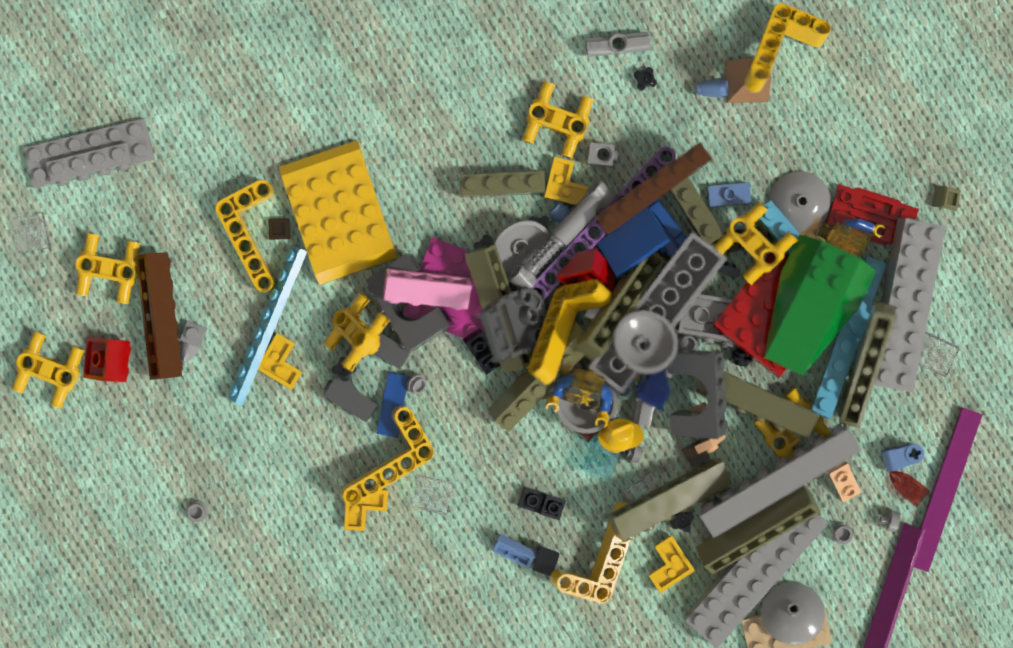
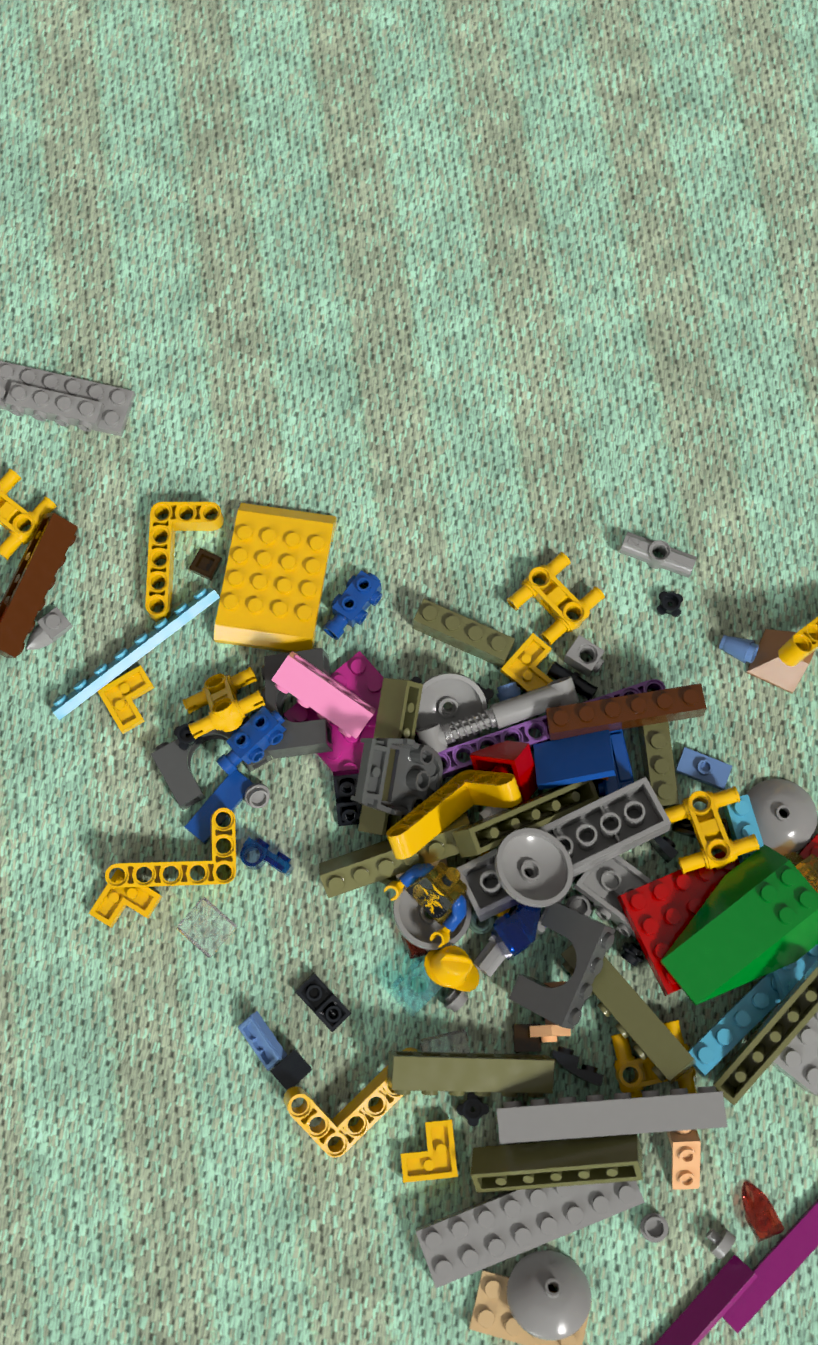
camera: 30 degrees right, 15 degrees down
(396, 348) = (252, 739): none -> blue brick
(408, 197) = (360, 599): none -> blue brick
(458, 423) = (279, 861): none -> clear blue plate
(608, 178) = (582, 686): none -> black pin
(733, 455) = (569, 1062): none -> black slope
(898, 457) = (764, 1169): medium blue piece -> none

